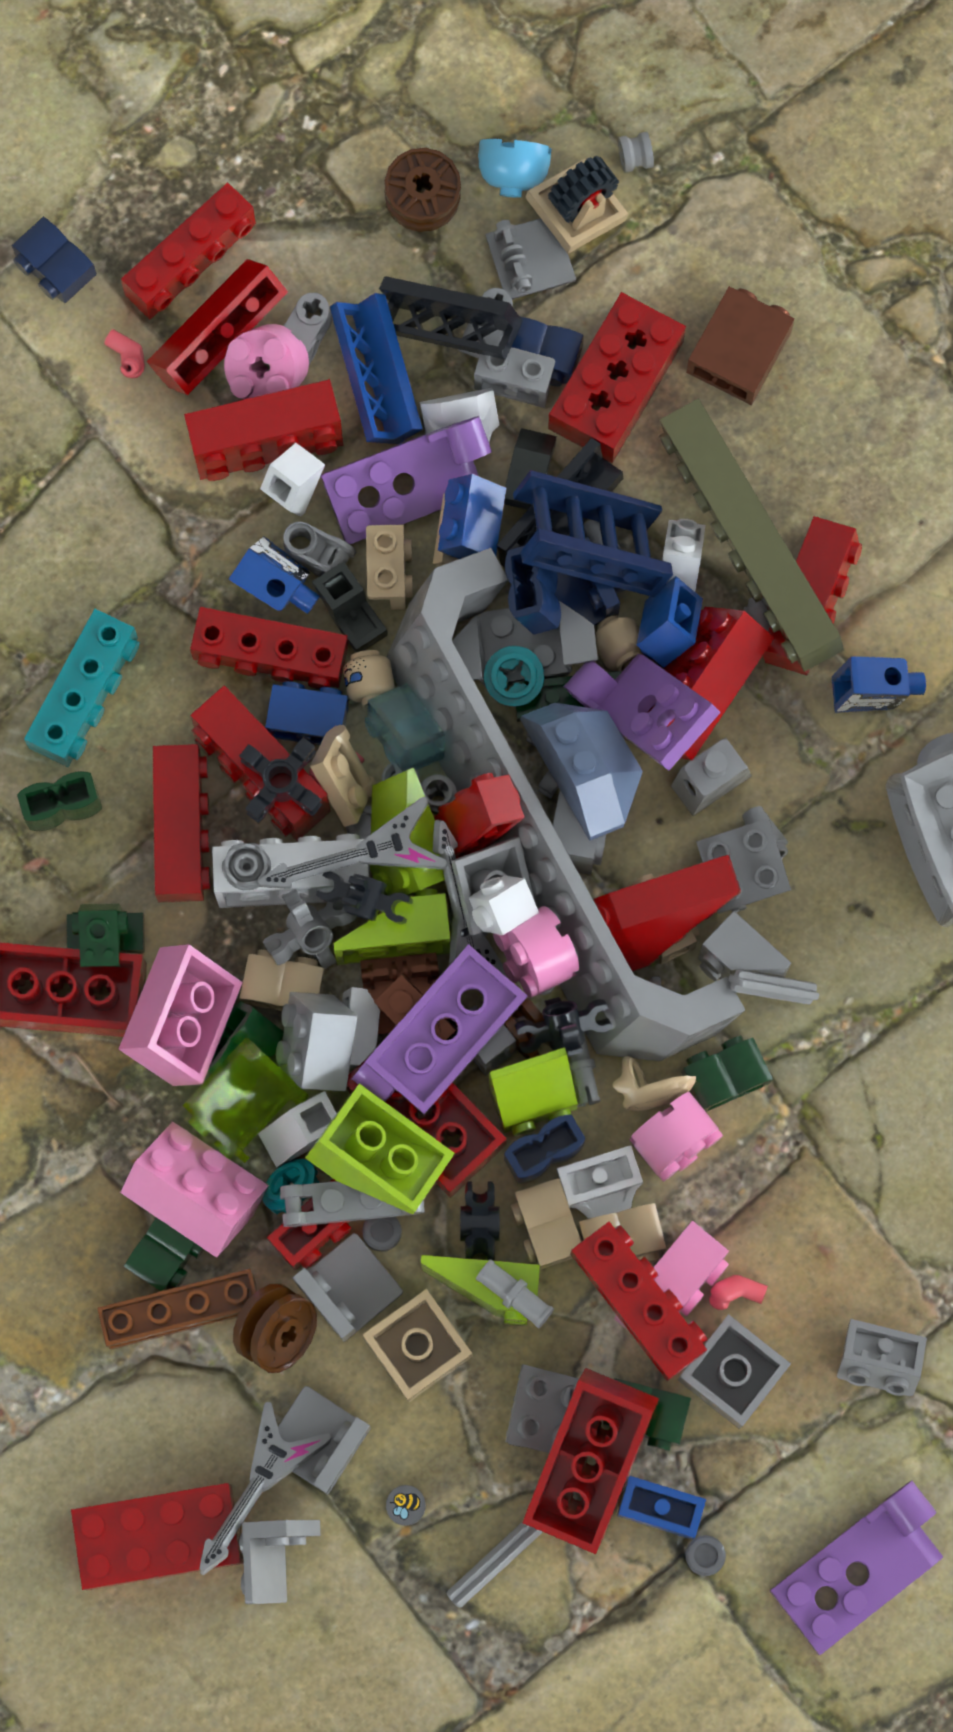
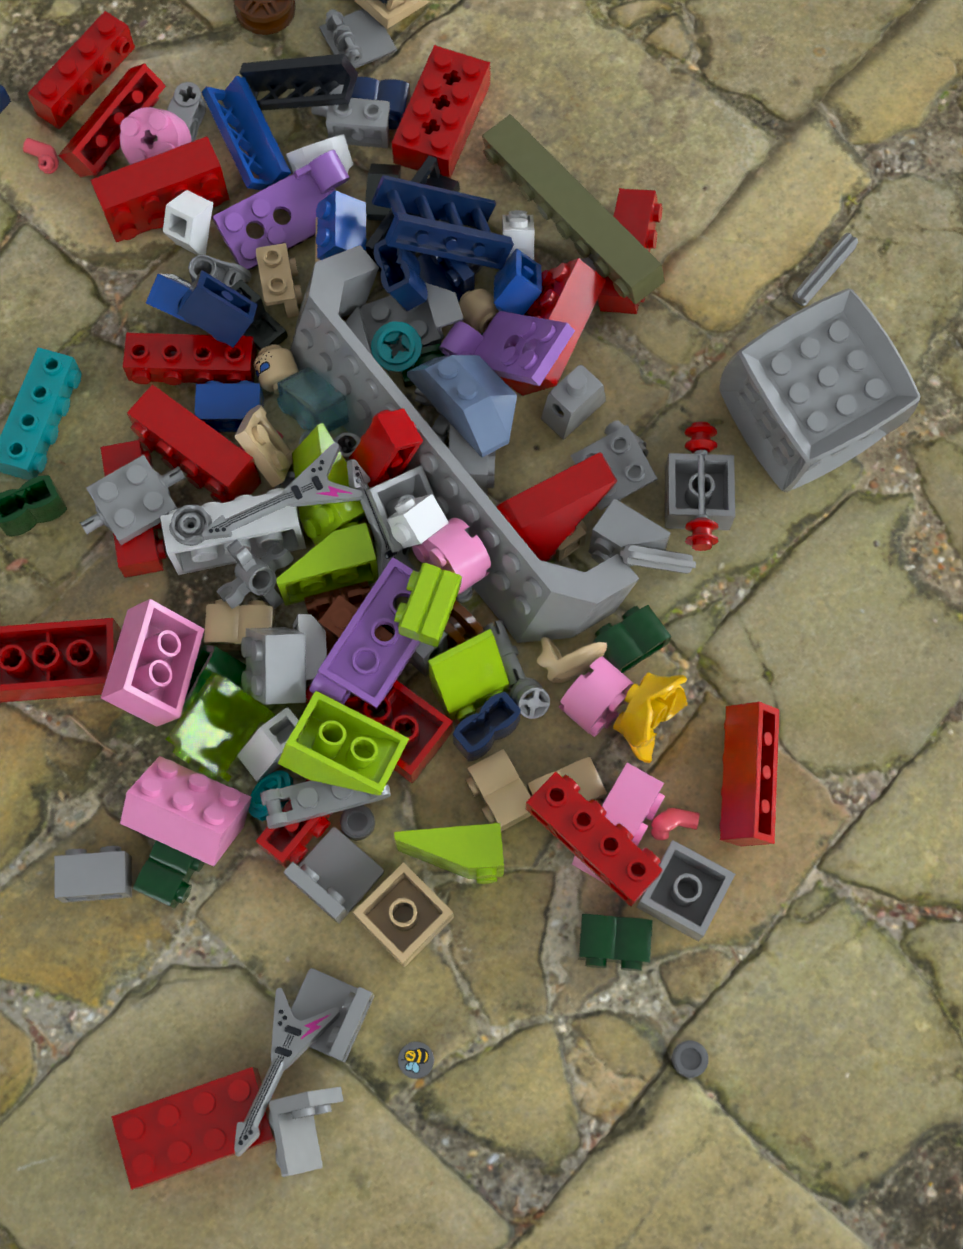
camera: 10 degrees left, 5 degrees down
(81, 1242) = (93, 875): none -> light grey brick
(104, 933) = (77, 603): dark green tile -> none
(176, 1309) = (187, 919): dark orange brick -> none
(182, 818) = (131, 499): none -> light grey plate
(262, 802) = (196, 471): black pin -> none
(275, 1328) = (274, 920): reddish brown wheel -> none
(312, 604) = (217, 309): none -> dark blue brick
(364, 897) = (296, 534): black pin -> none
(480, 1222) = (441, 796): black pin -> none
(492, 1564) = (504, 1097): light grey axle -> none
(500, 1009) = (428, 605): none -> lime brick
(514, 1293) = (482, 851): light grey pin -> none
(539, 1407) = (528, 954): light grey hinge -> none
(563, 1026) = (486, 614): black pin -> none
(567, 1470) = (554, 1002): red brick -> none
(601, 1182) = (541, 747): white slope -> none
(603, 1132) = (535, 705): none -> light grey wheel
(661, 1507) = (644, 1022): blue brick -> none
(727, 1159) = (649, 704): none -> yellow brick
(740, 344) = (535, 75): copper brick -> none
(828, 1253) = (749, 774): none -> red brick
(838, 909) = (700, 488): none -> light grey brick
(874, 684) = (692, 309): blue torso -> none
(882, 1358) = (810, 858): light grey bracket -> none
(889, 1547) = (846, 1020): medium lavender hinge -> none

